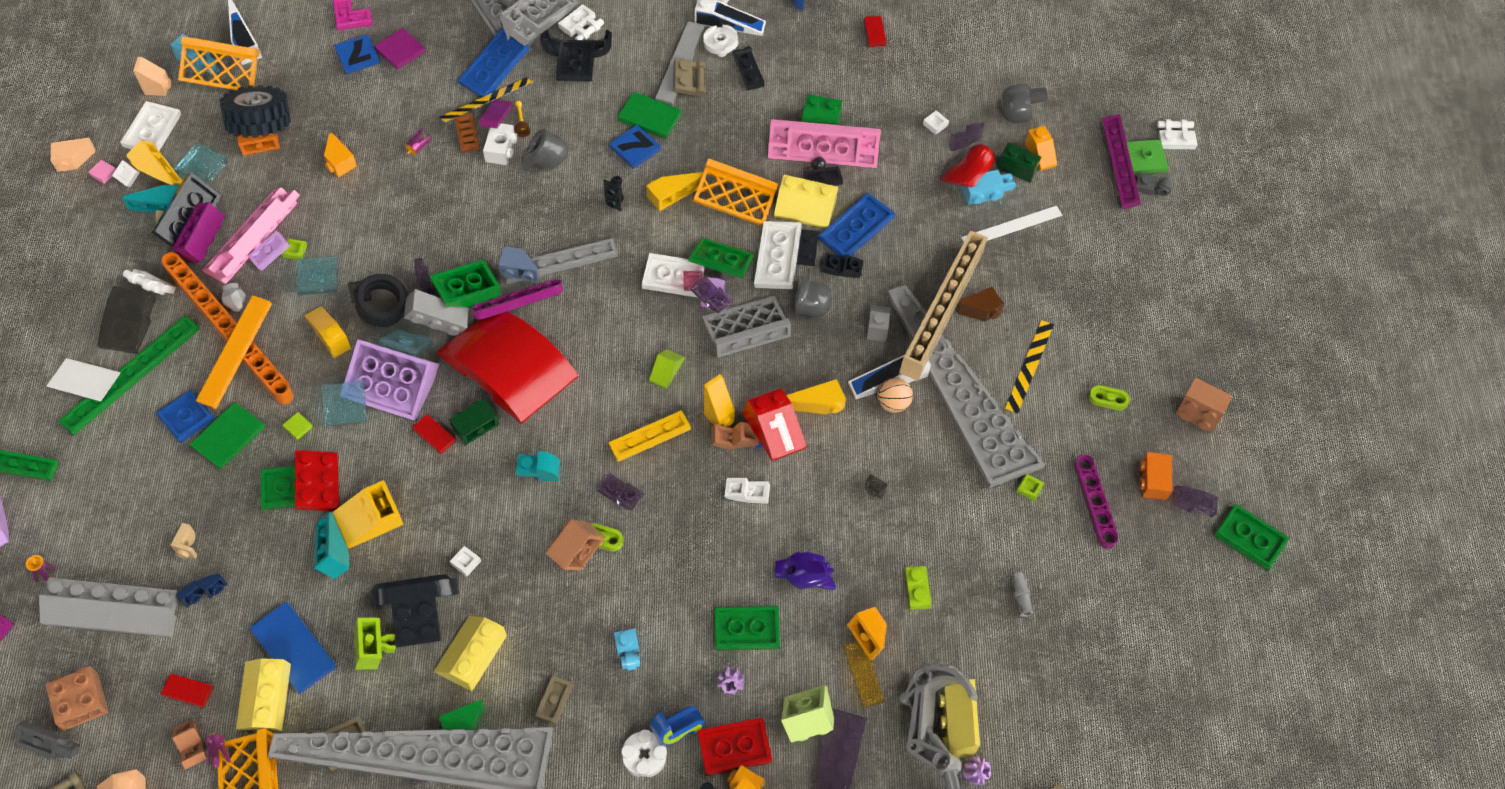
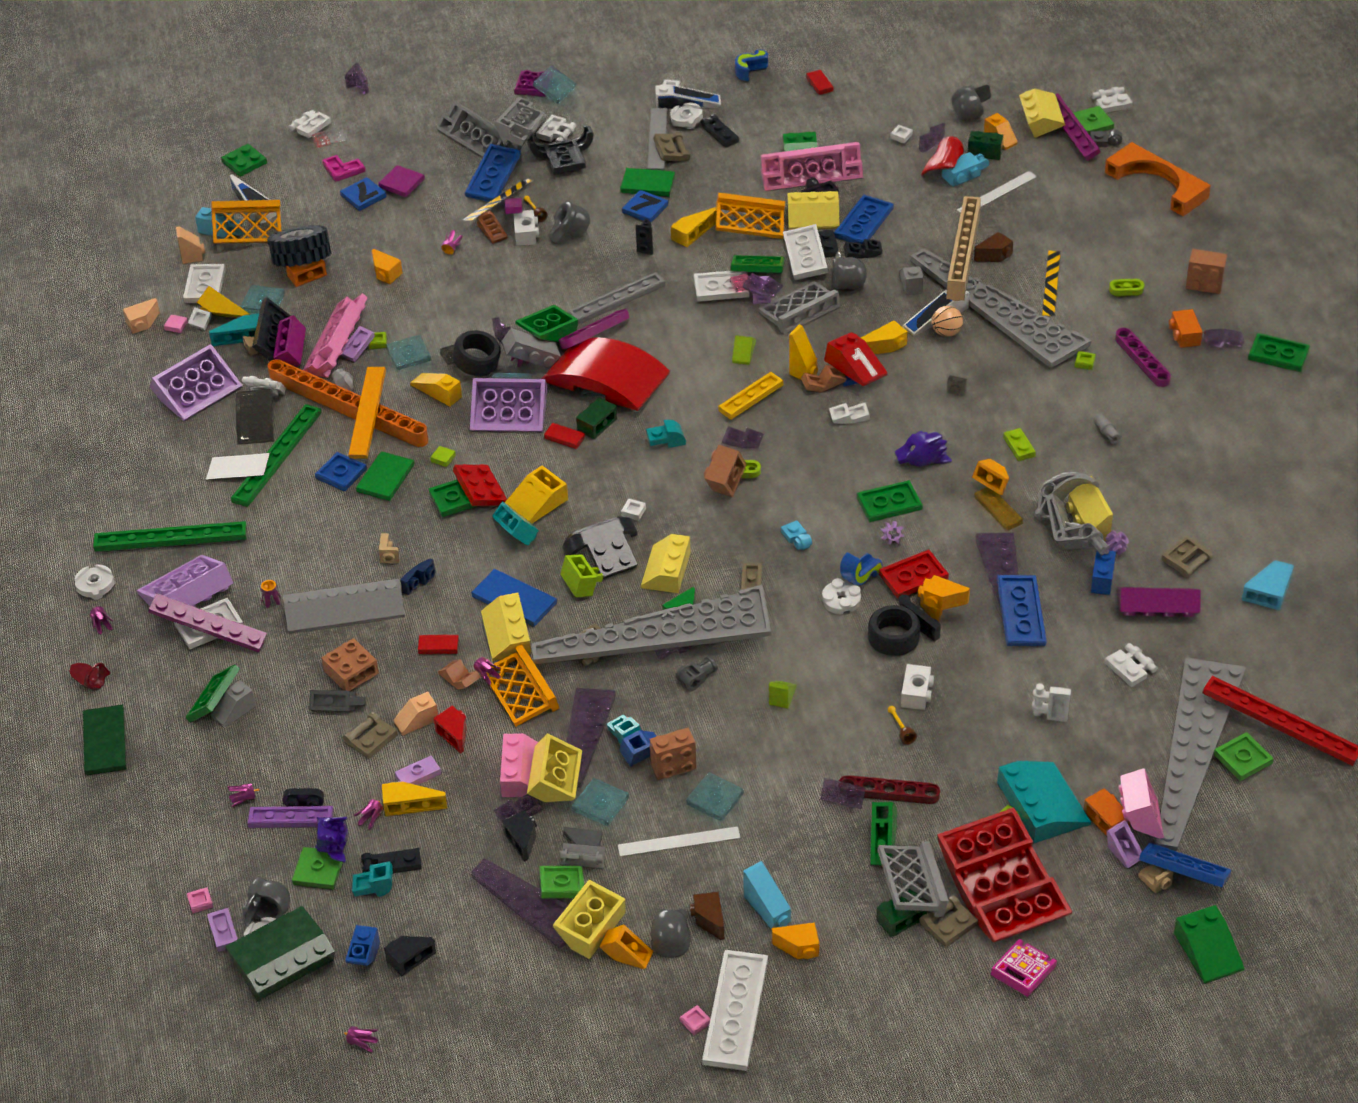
camera: 10 degrees left, 15 degrees down
(84, 258) = (195, 383): none -> lavender slope
(344, 403) = (478, 430): clear light blue plate -> none
(517, 264) = (584, 304): sand blue slope -> none
(807, 714) = (966, 537): yellowish green slope -> none
(1094, 134) = (1041, 111): none -> light yellow slope
(1177, 225) = (1135, 159): none -> orange arch

